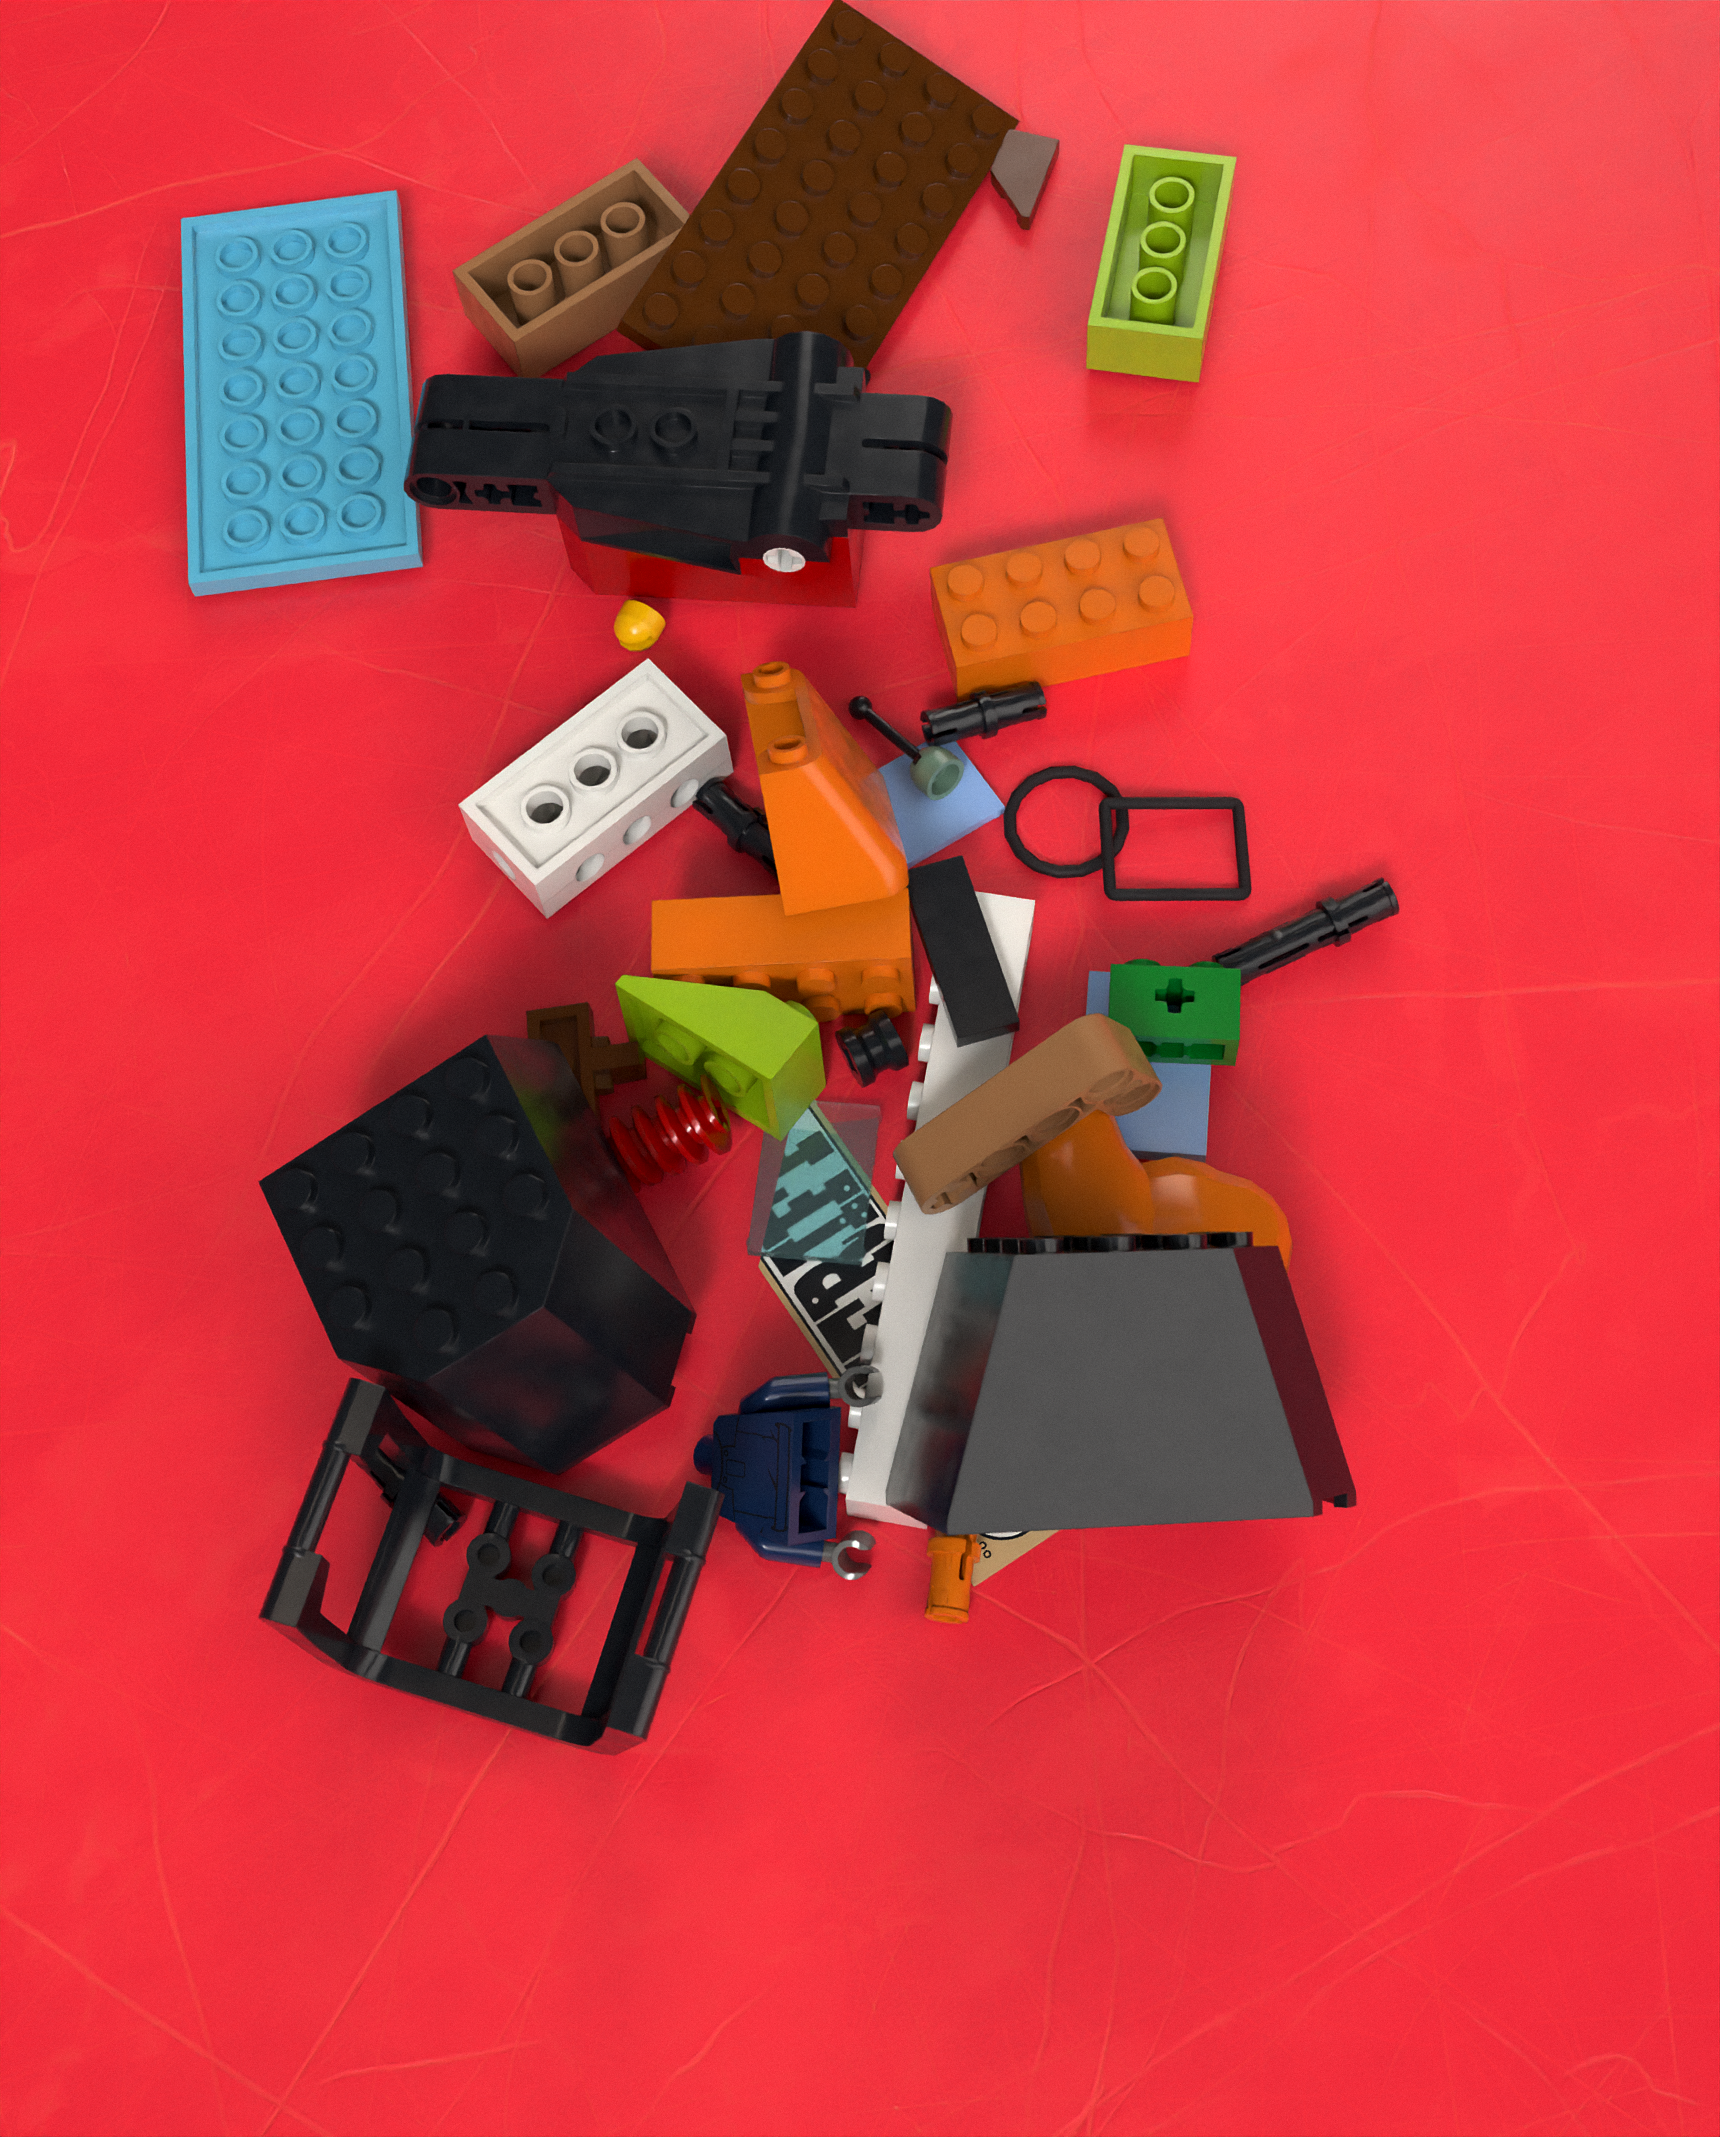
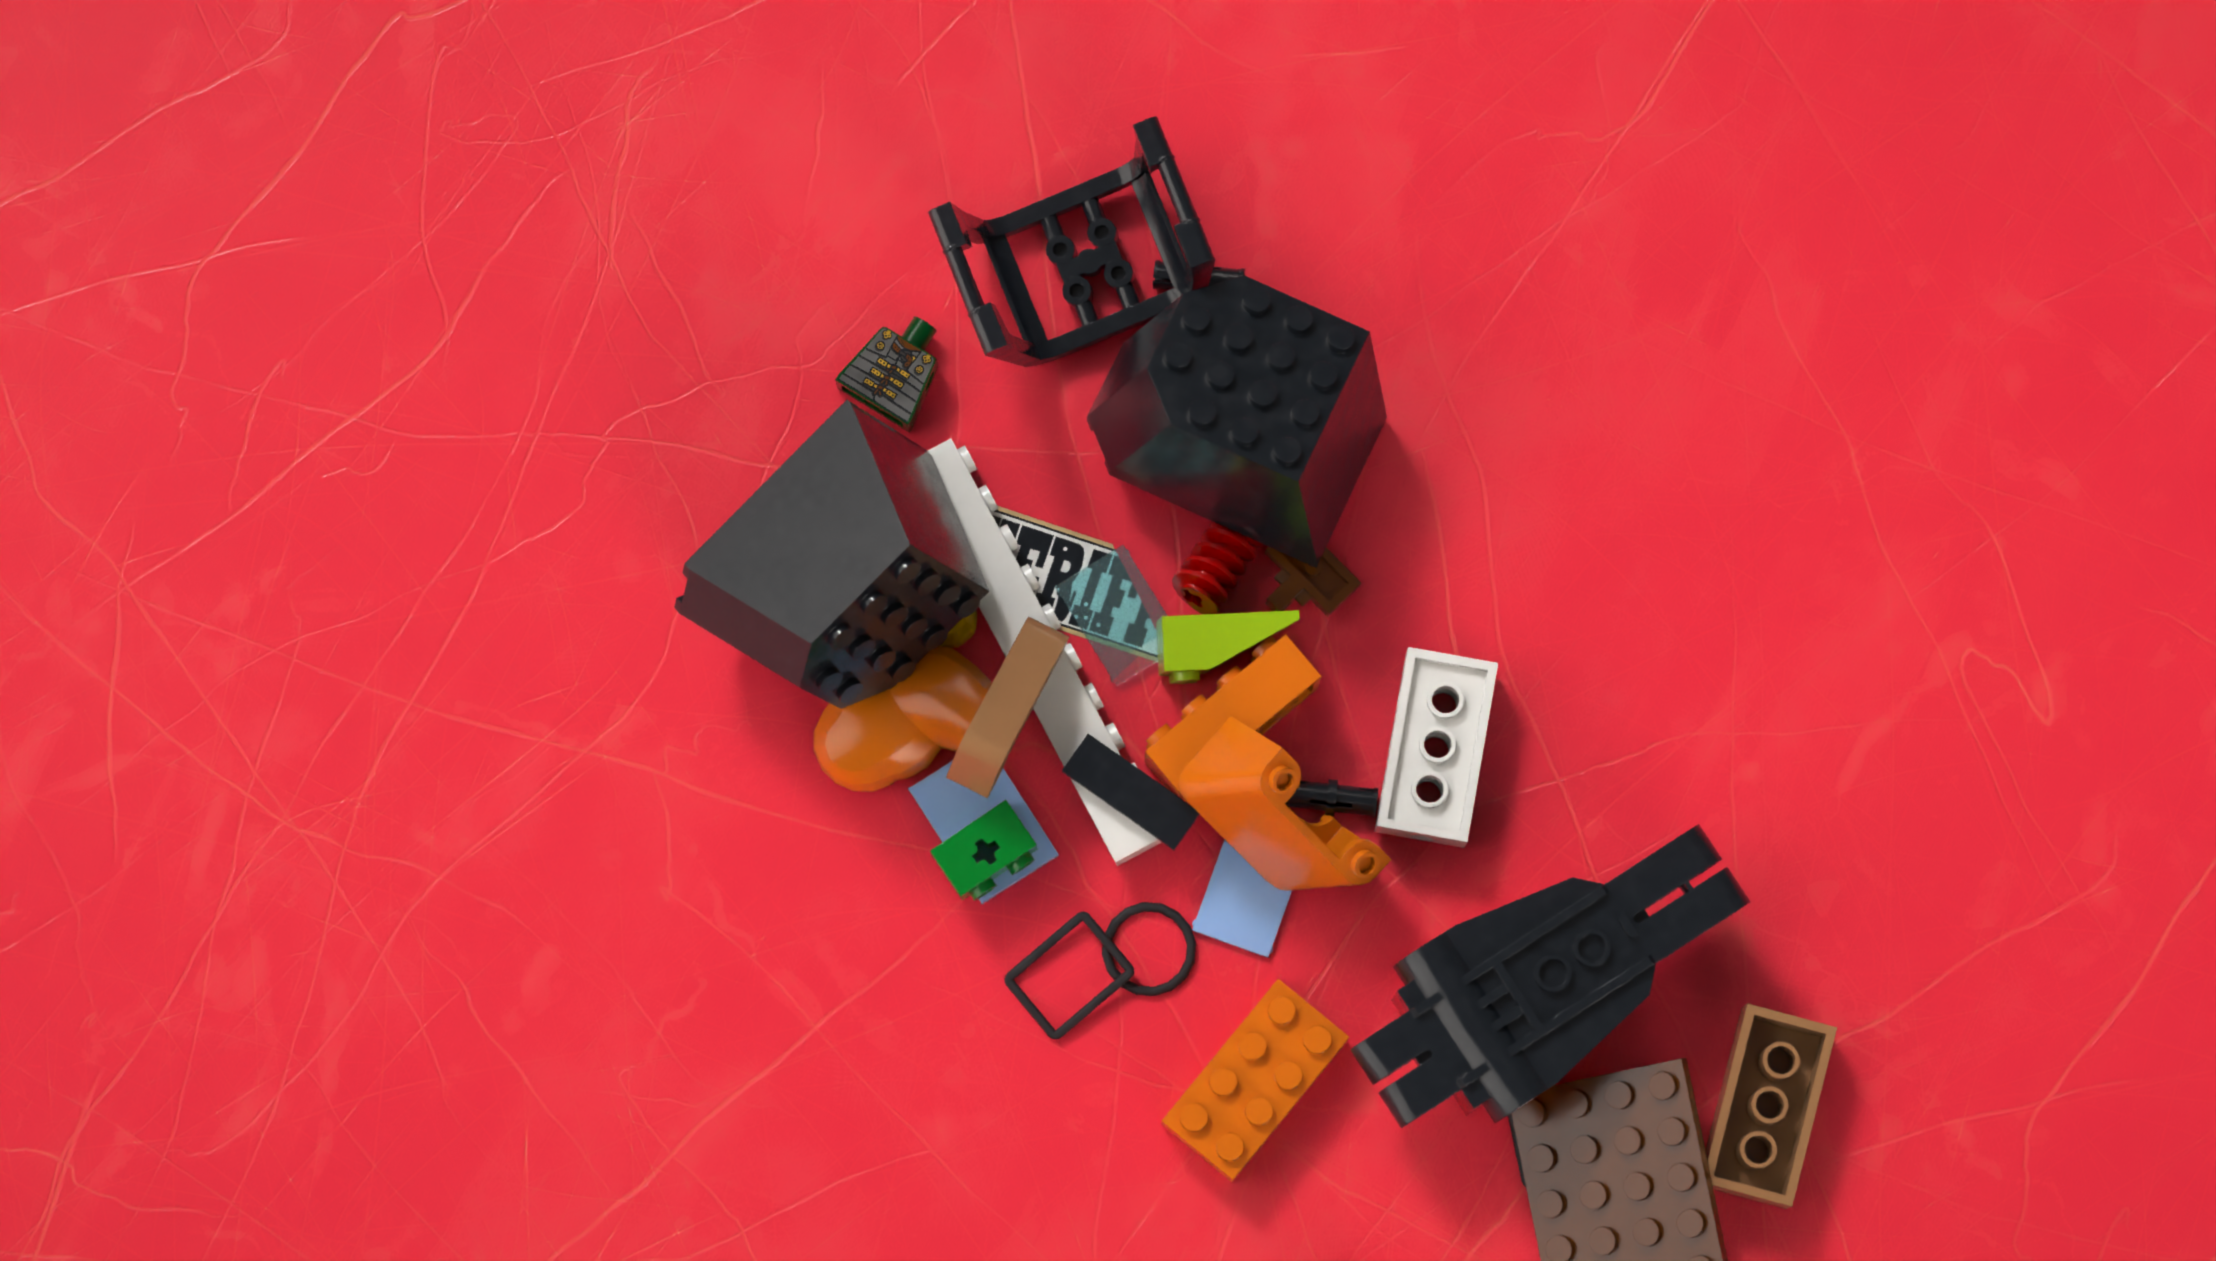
camera: 135 degrees right, 15 degrees up
(297, 394) = (1886, 892): medium azure plate -> none
(638, 626) = (1513, 881): yellow hinge -> none
(783, 1469) = (998, 429): dark blue torso -> none
(850, 1647) = (893, 373): none -> torso
(872, 1048) = (1144, 709): black wheel -> none
(933, 768) = (1251, 915): sand green hinge -> none
(983, 714) = (1249, 977): black pin -> none
(1327, 924) = (954, 963): black pin -> none

